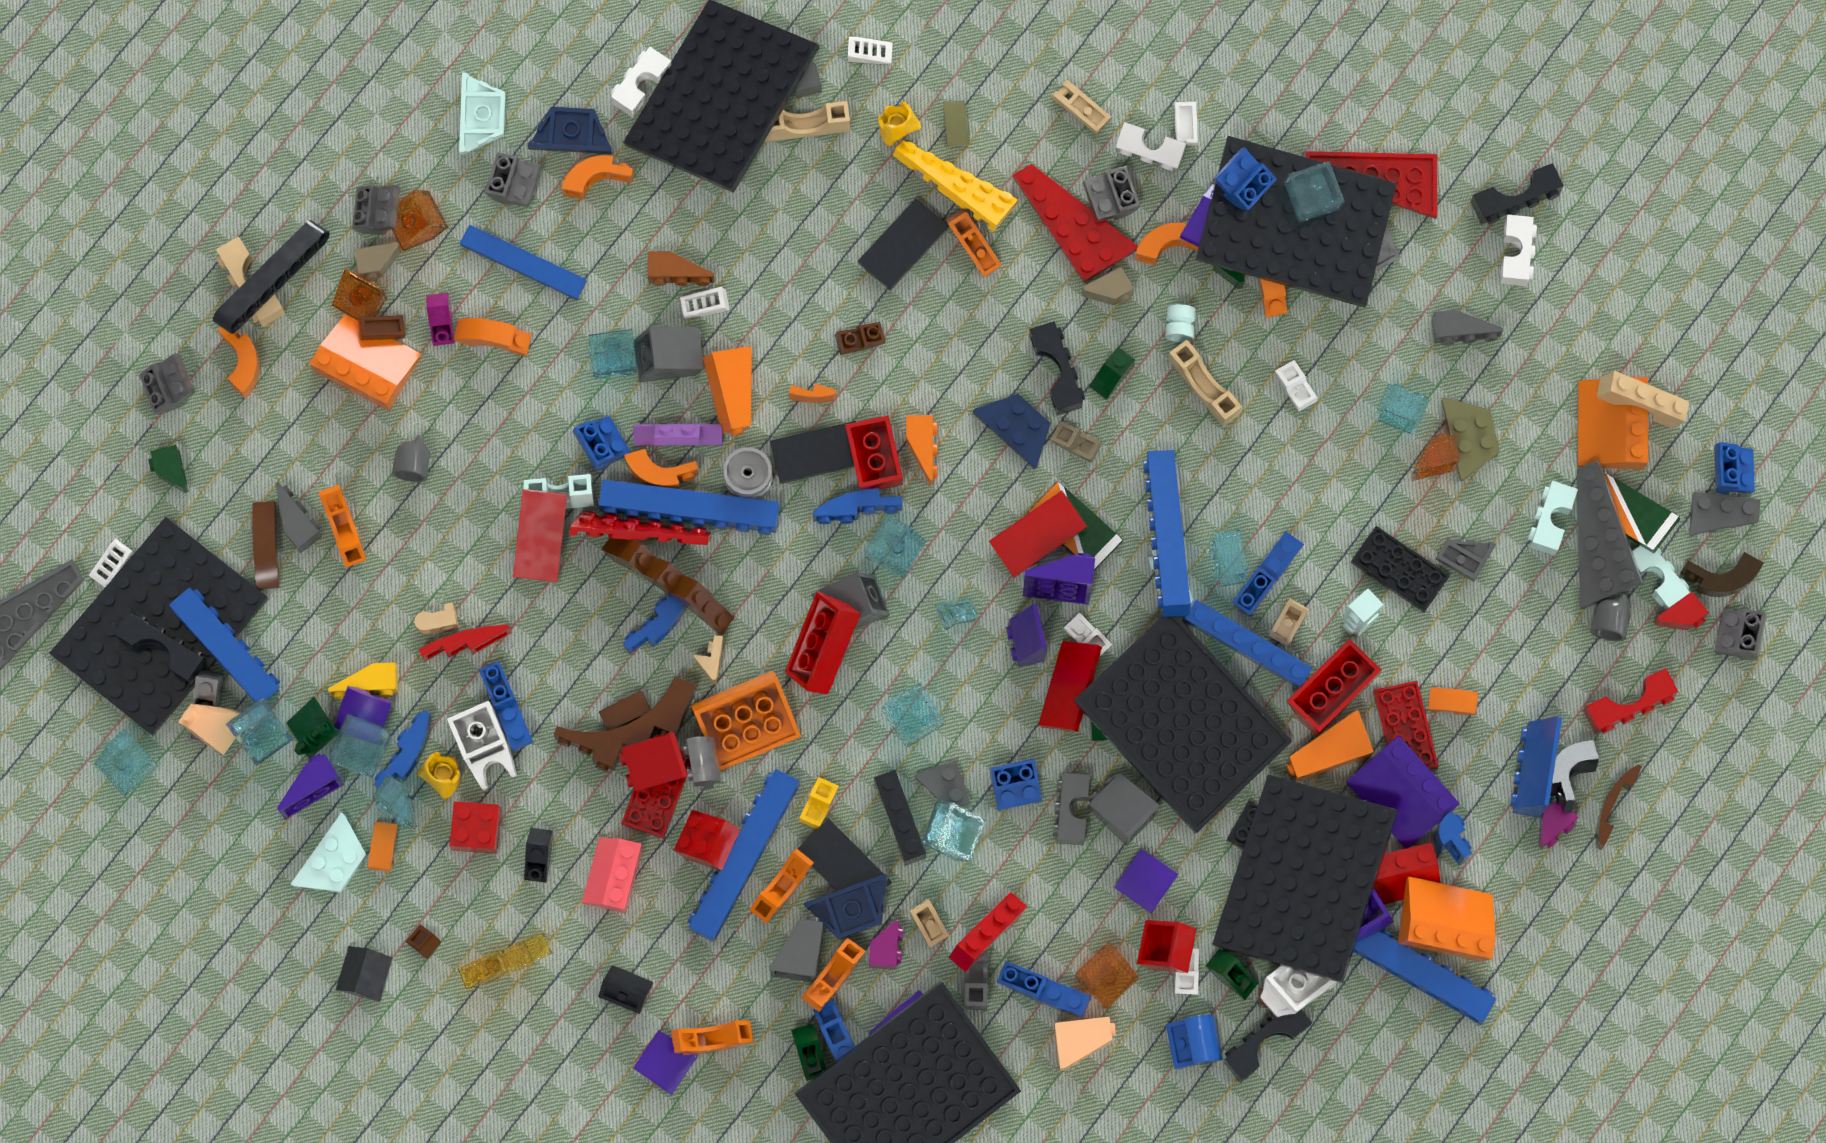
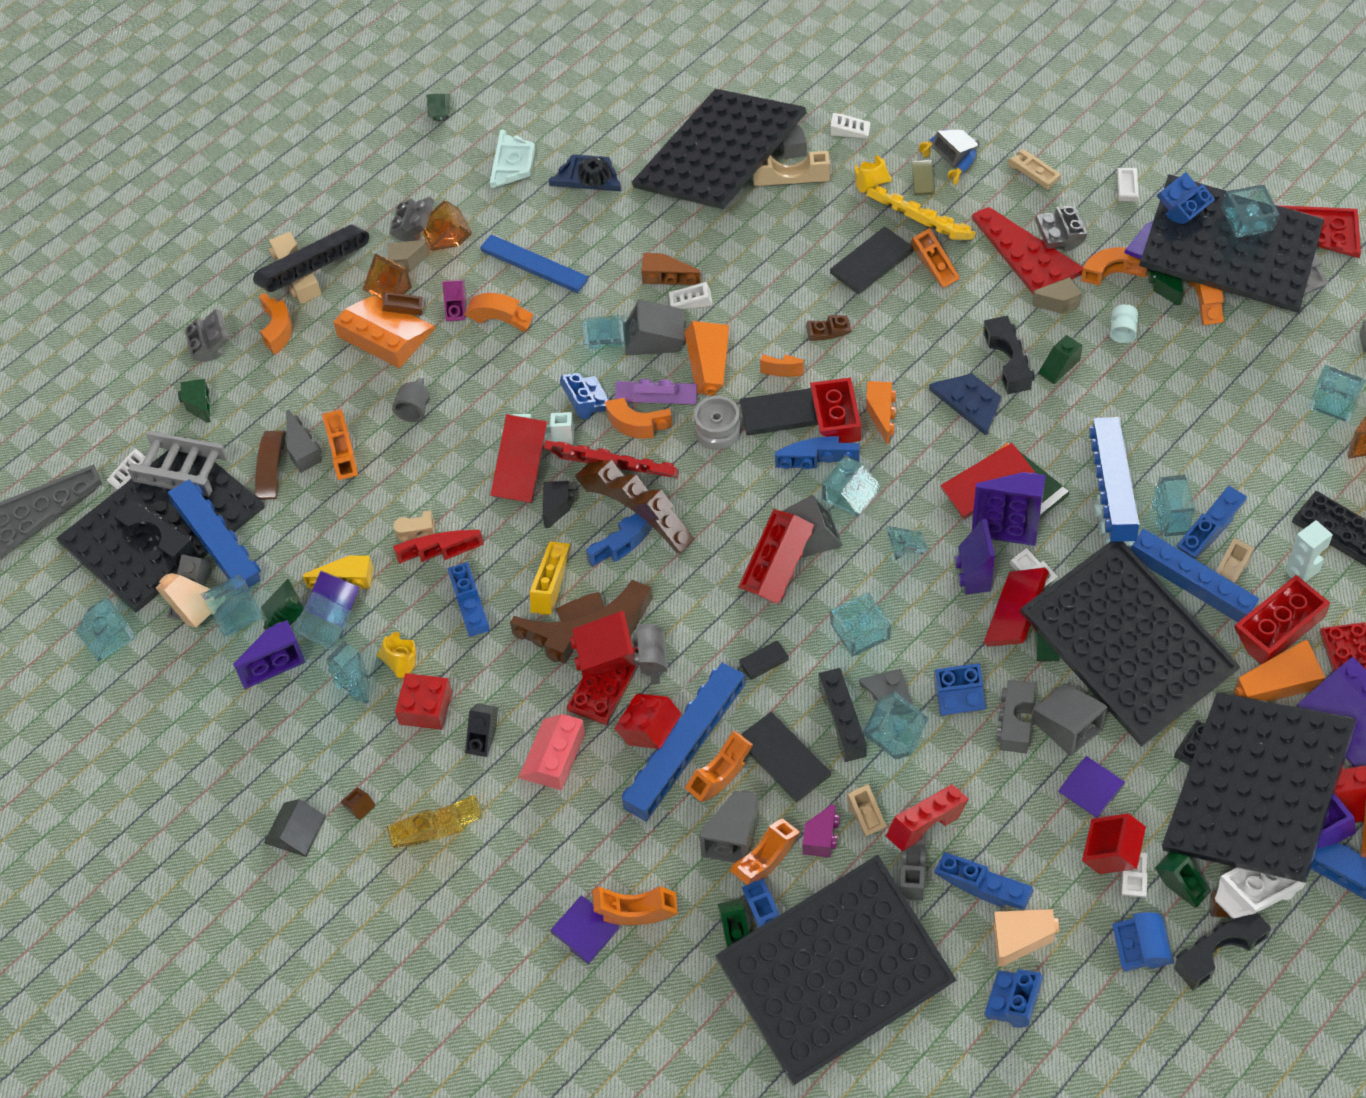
camera: 10 degrees right, 20 degrees down
(175, 578) = (169, 479): none -> light grey fence
(333, 859) = (282, 726): light aqua wing -> none
(382, 846) = (331, 714): orange slope -> none
(383, 35) = (438, 105): none -> dark green slope
(412, 744) = (374, 628): blue slope -> none
(482, 750) = (441, 625): white brick -> none
(512, 180) = (531, 202): flat silver brick -> none
(572, 133) = (593, 171): none -> black gear
(584, 580) = (556, 501): none -> black slope
(587, 673) = (549, 578): none -> yellow slope
(593, 170) = (603, 199): orange arch -> none
(625, 989) = (551, 858): black panel -> none
(649, 66) = (641, 148): white arch -> none
(689, 506) = (663, 446): blue brick -> none
(711, 665) = (668, 573): tan slope -> none
(747, 719) = (699, 623): orange slope -> none
(817, 757) = (764, 660): none -> black tile
(818, 803) = (763, 699): yellow slope -> none
(851, 908) = (789, 790): dark blue wing -> none
(991, 84) = (955, 148): none -> dark grey torso
(1074, 1104) = (1014, 997): none -> blue brick
(1075, 442) = (1021, 412): dark tan slope -> none
(1106, 975) = (1049, 871): clear orange slope -> none
(1132, 141) = (1110, 202): white arch -> none
(1193, 371) = (1133, 356): tan arch -> none
(1296, 386) = (1232, 377): white slope -> none

